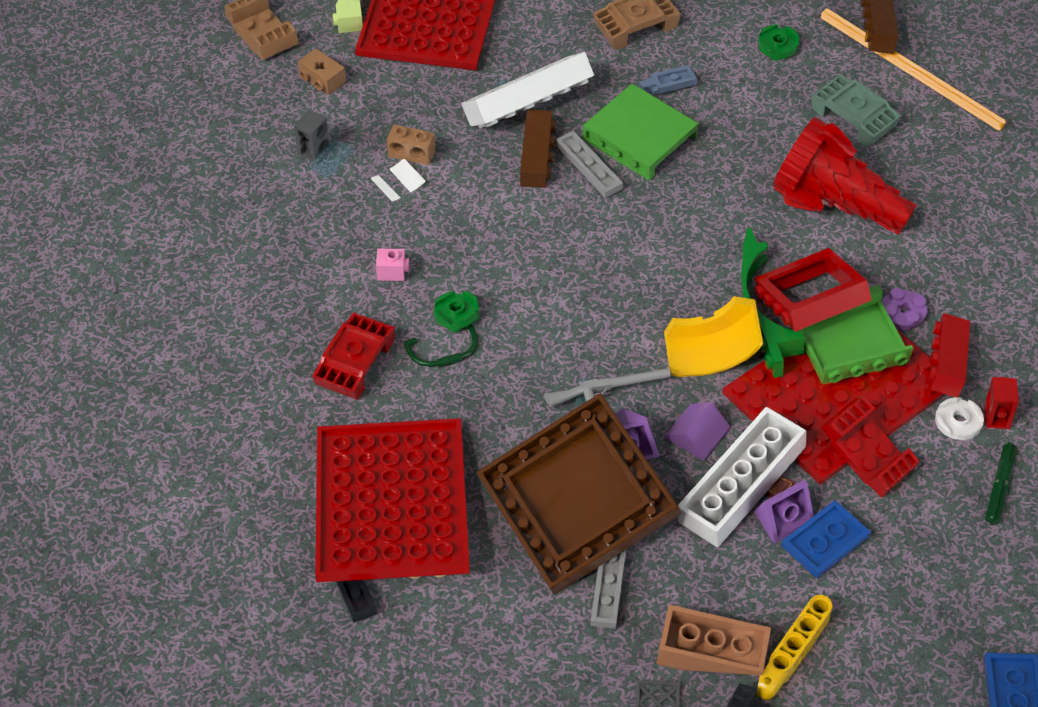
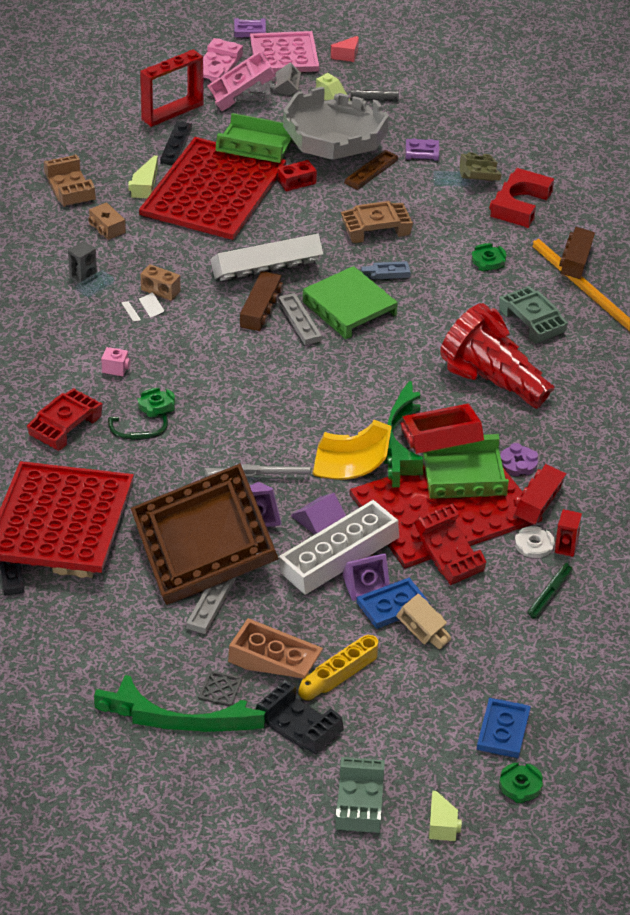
camera: 10 degrees right, 10 degrees down
(874, 561) = (424, 622): none -> tan brick

